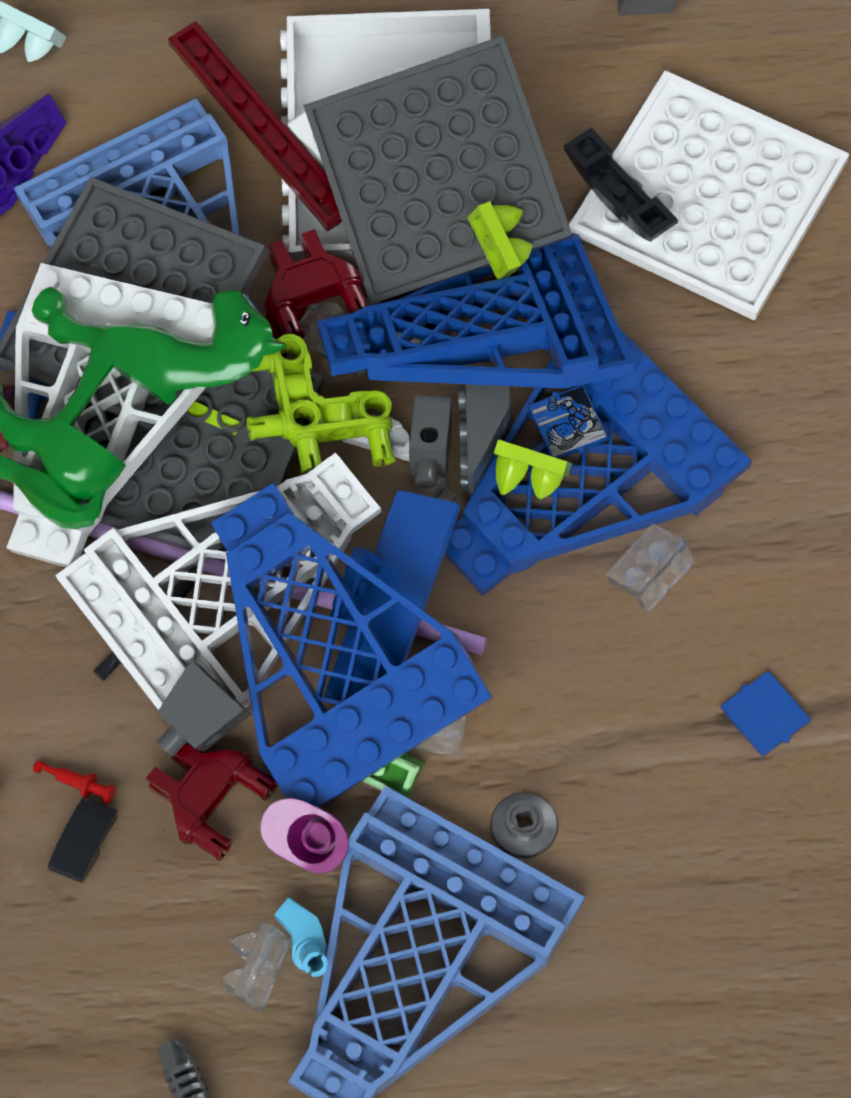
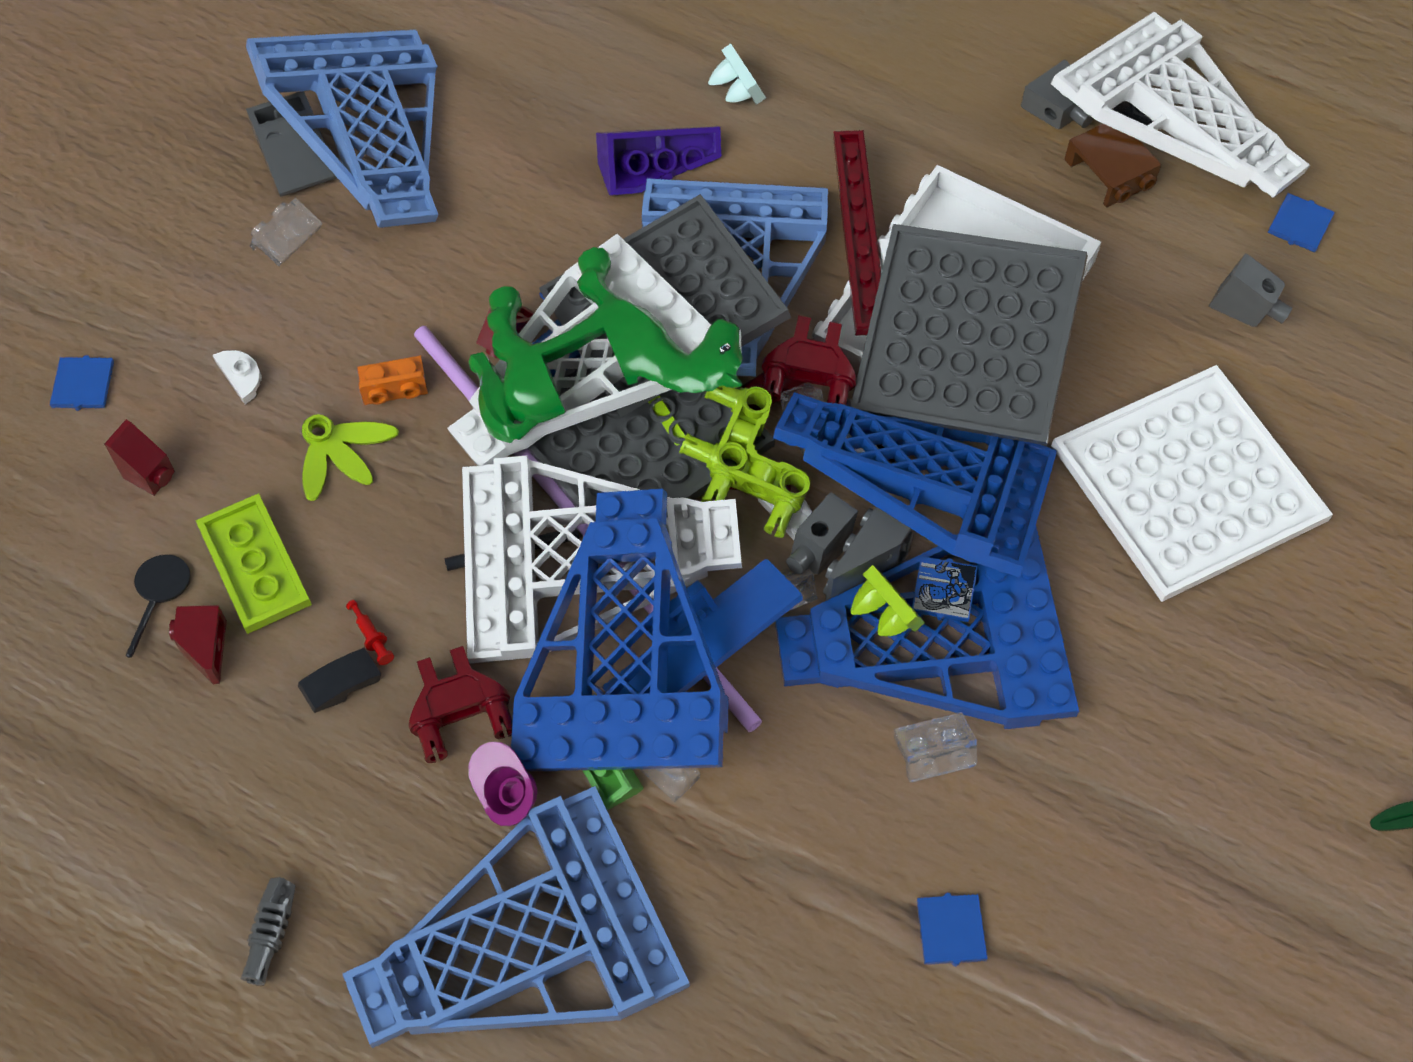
camera: 30 degrees right, 5 degrees down
(198, 711) = (488, 633): dark grey torso -> none
(263, 956) = (403, 861): clear tile -> none
(307, 937) = (447, 866): medium azure arm -> none
(490, 227) = (981, 397): lime tile -> none
(529, 840) = (679, 905): flat silver piece -> none
(616, 188) = (1112, 430): black slope -> none

